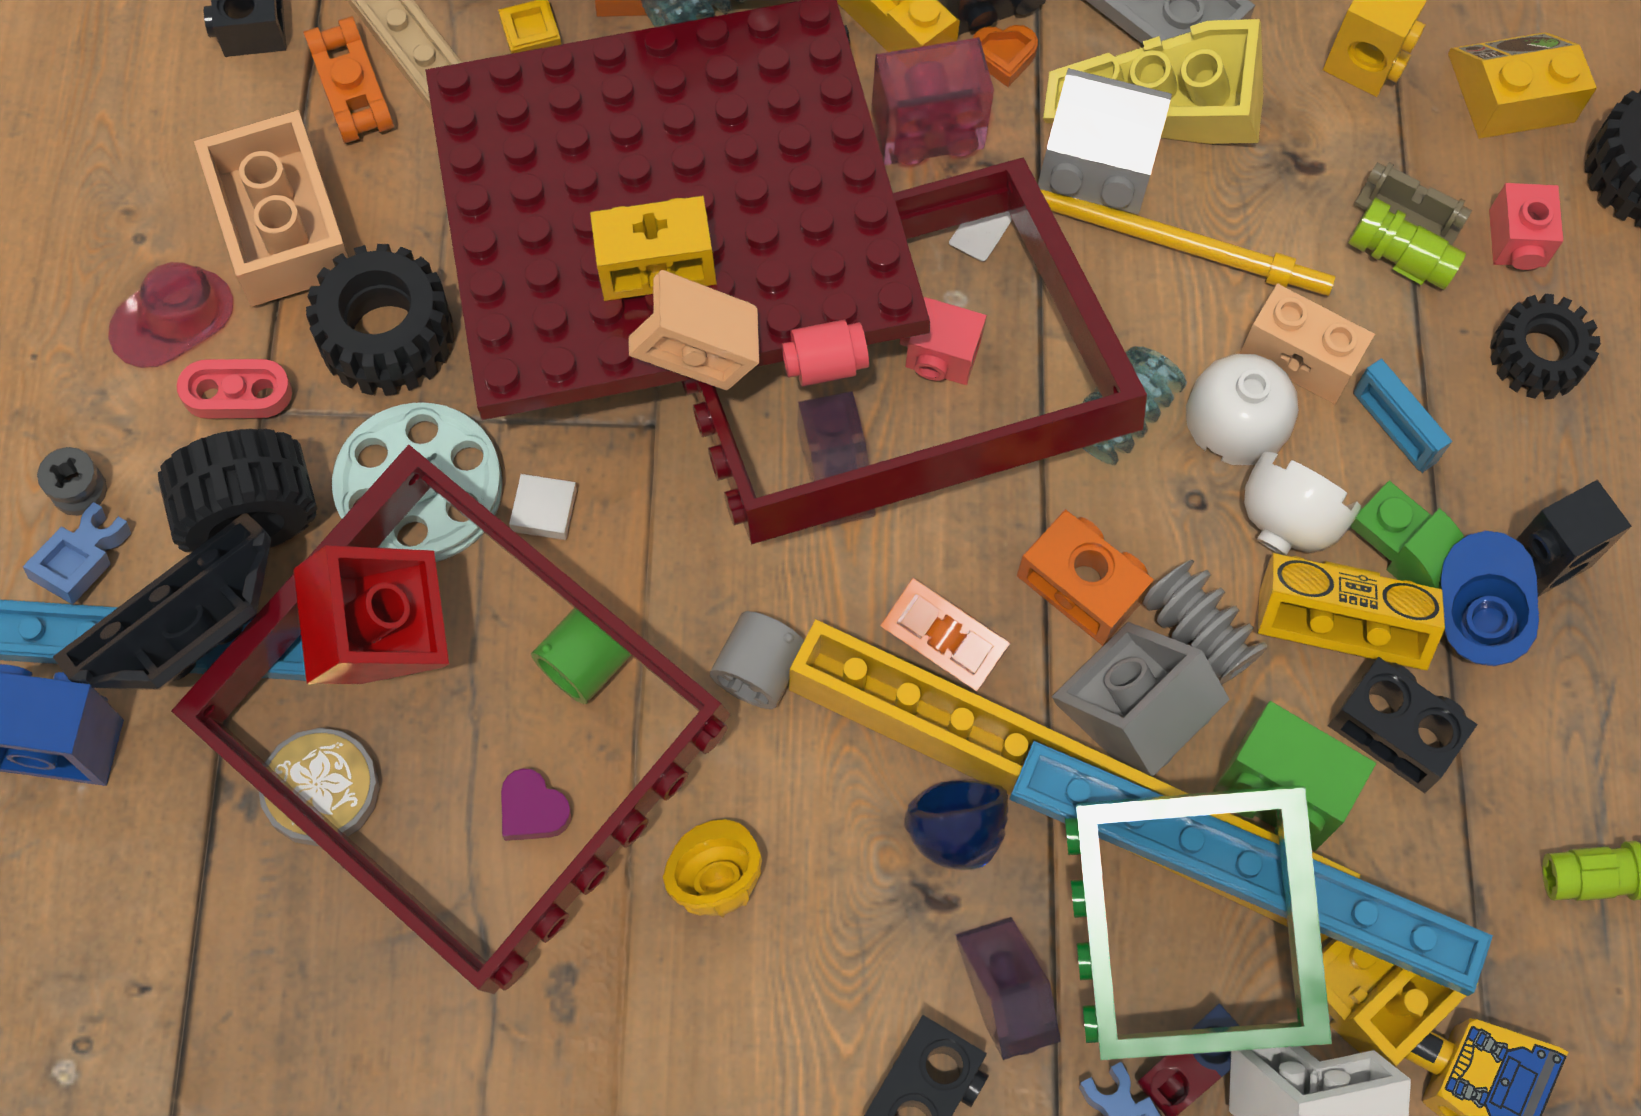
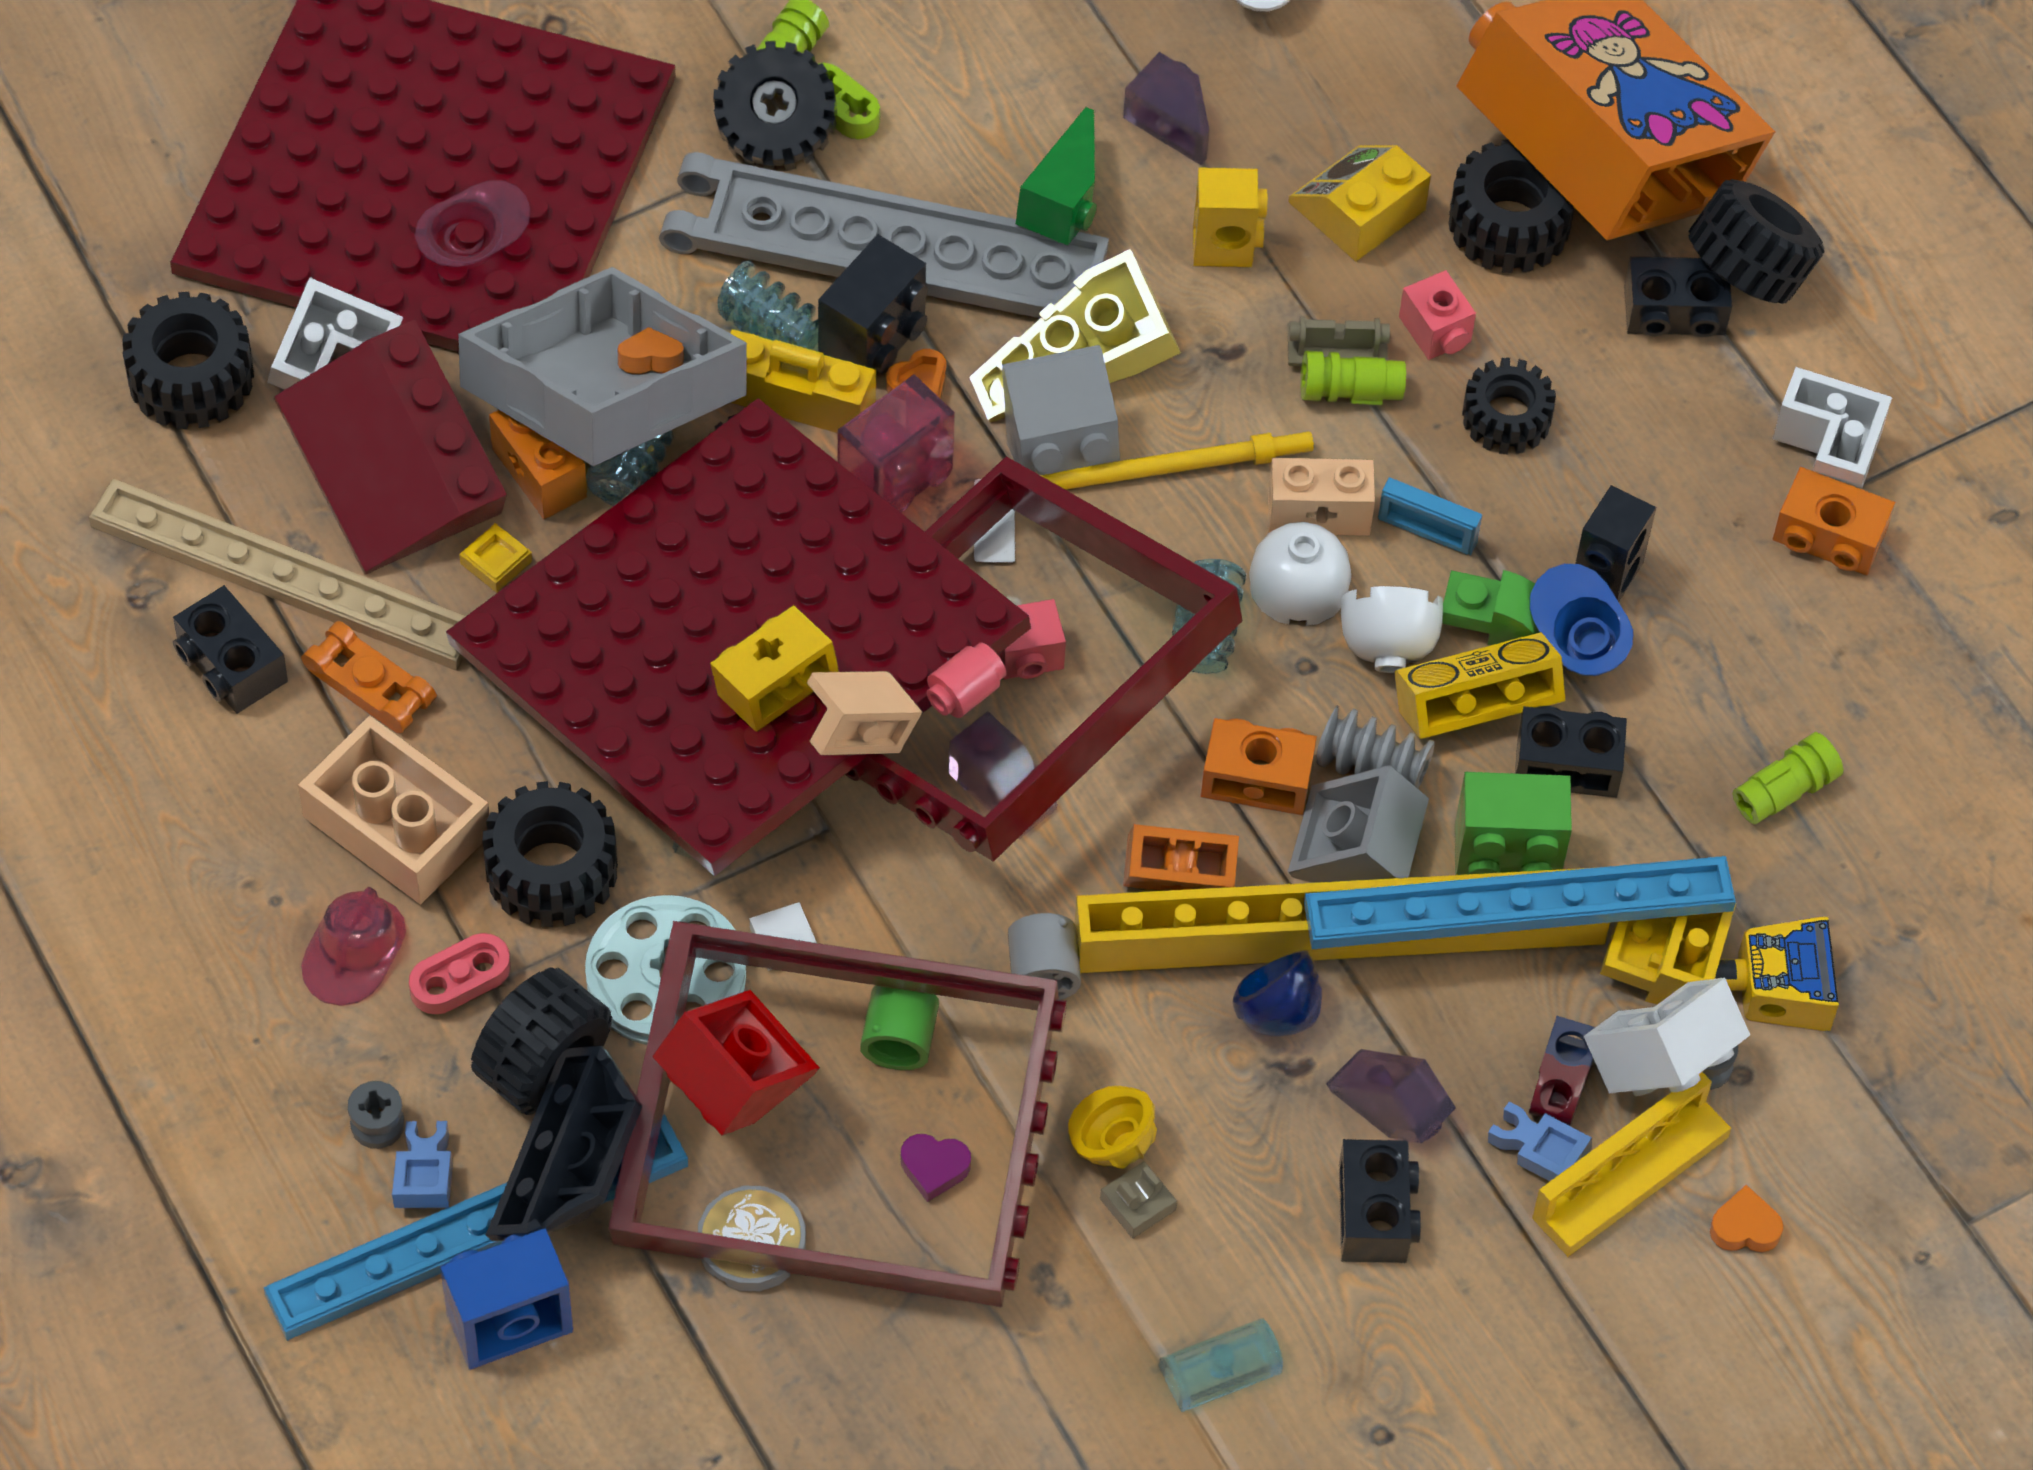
camera: 30 degrees left, 10 degrees down
(698, 953) = (1138, 1199): none -> dark tan tile
(1301, 911) = (1579, 905): window -> none

